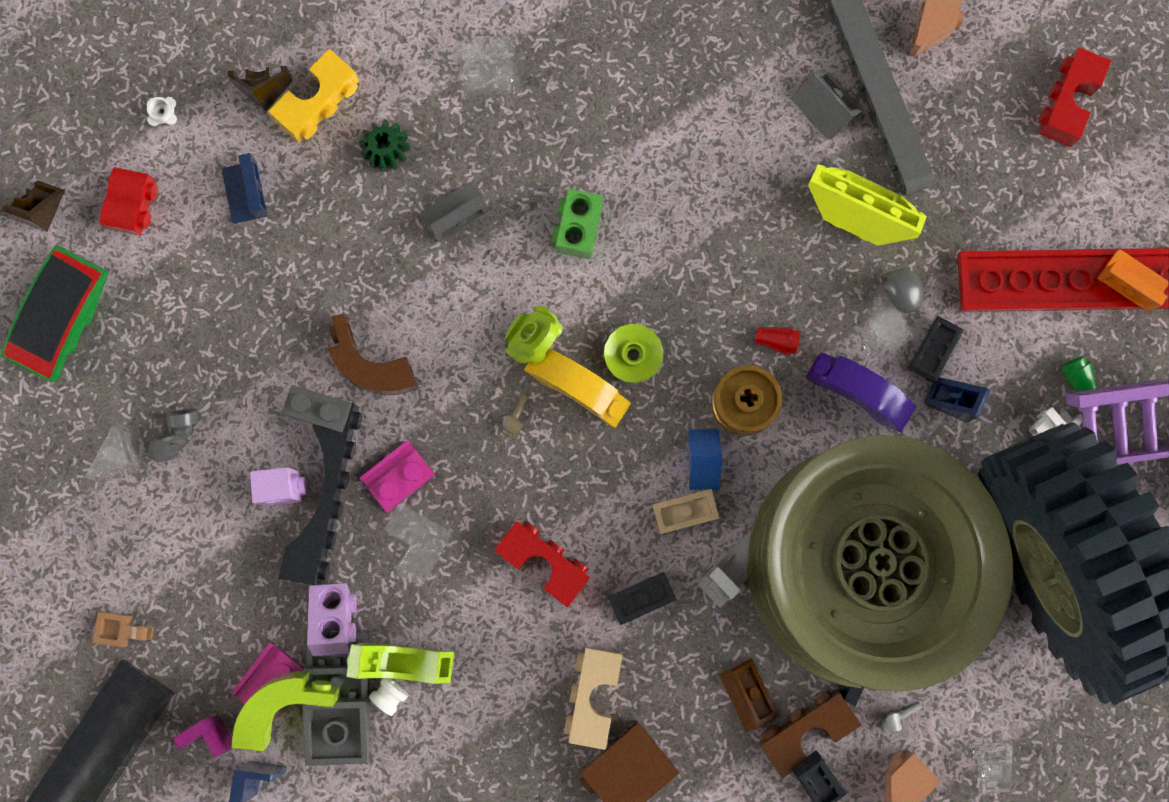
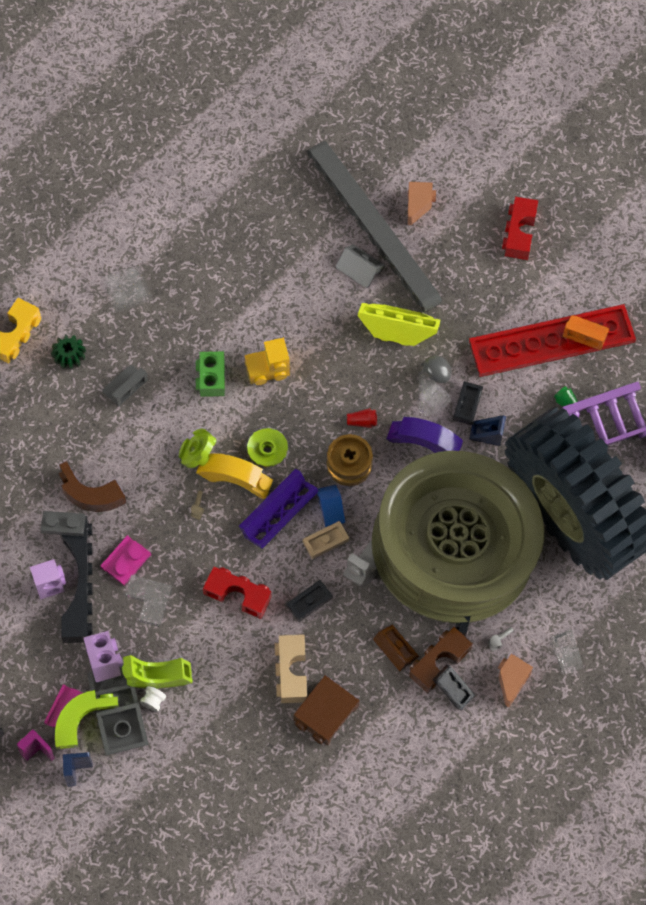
camera: 15 degrees left, 15 degrees down
(622, 443) = (274, 507): none -> dark purple fence
(663, 227) = (268, 364): none -> yellow brick

